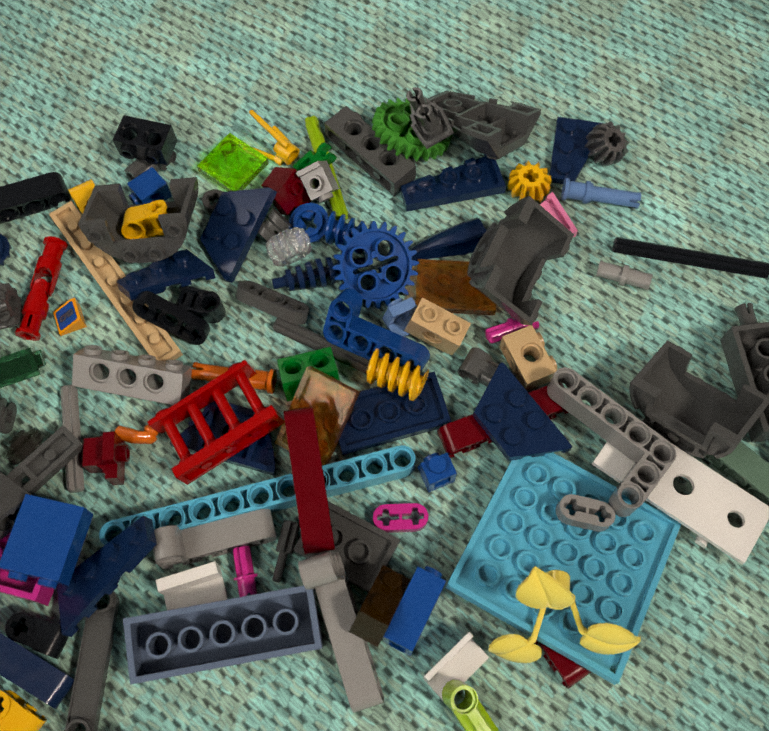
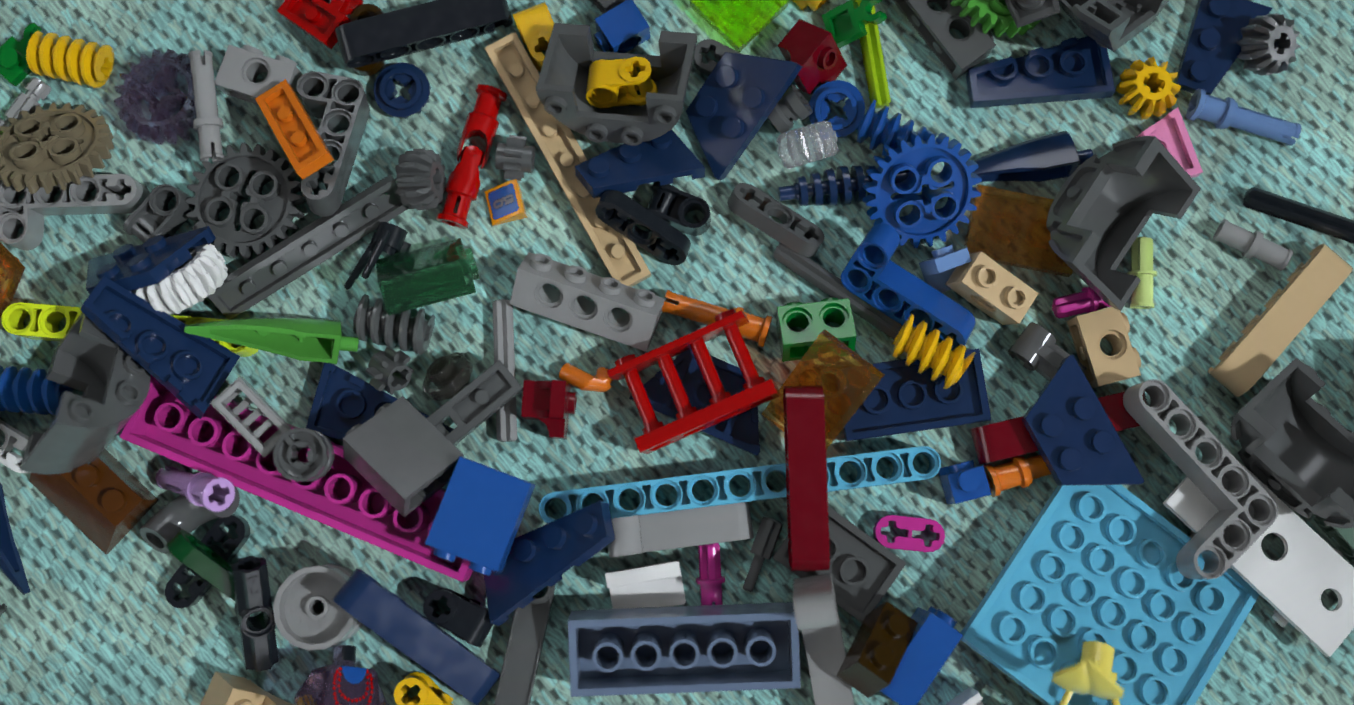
camera: 10 degrees right, 15 degrees up
(73, 283) = (515, 157): none -> dark grey gear
(327, 183) = (863, 41): light grey brick -> none
(477, 459) = (1015, 473): none -> orange pin
(549, 305) = (1142, 268): none -> yellowish green axle
(585, 511) = (1147, 560): light grey beam -> none
(653, 323) = (1282, 320): none -> tan beam

